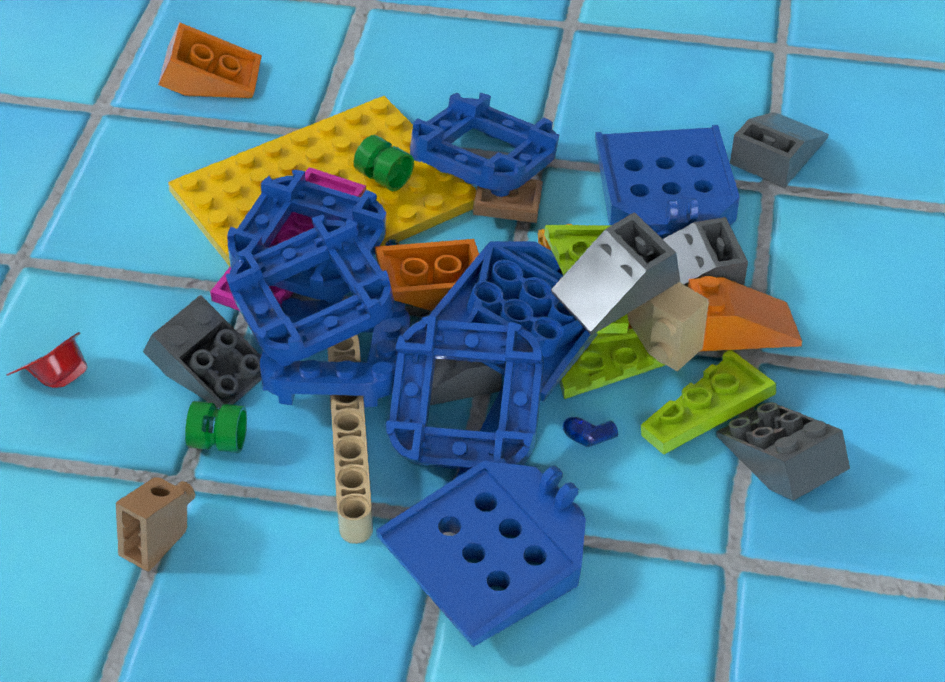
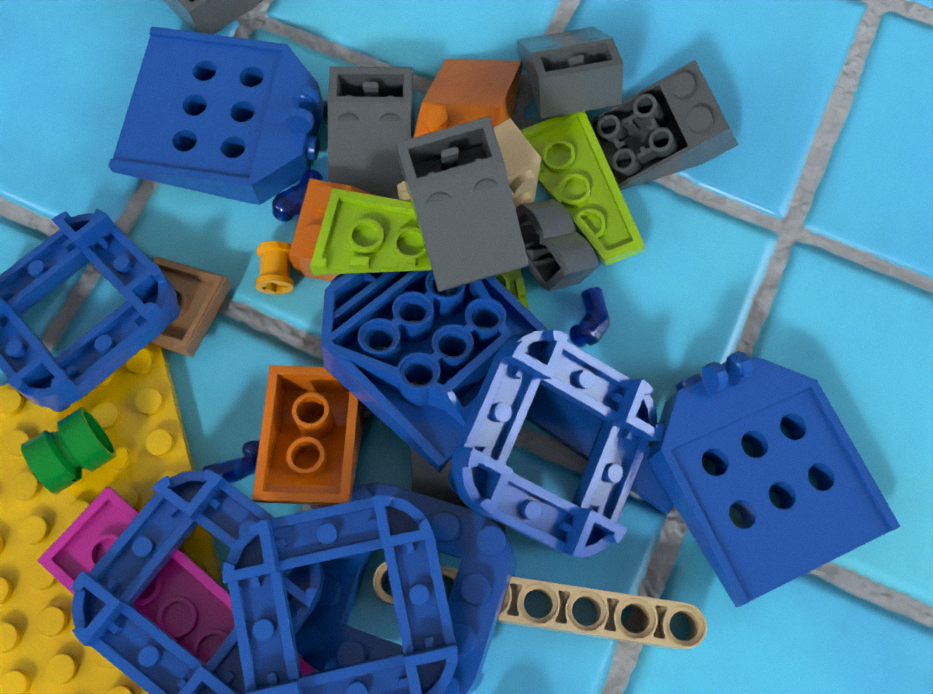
camera: 75 degrees left, 25 degrees up
(638, 386) = (553, 248): none -> dark grey brick
(799, 361) = (572, 71): none -> dark grey slope

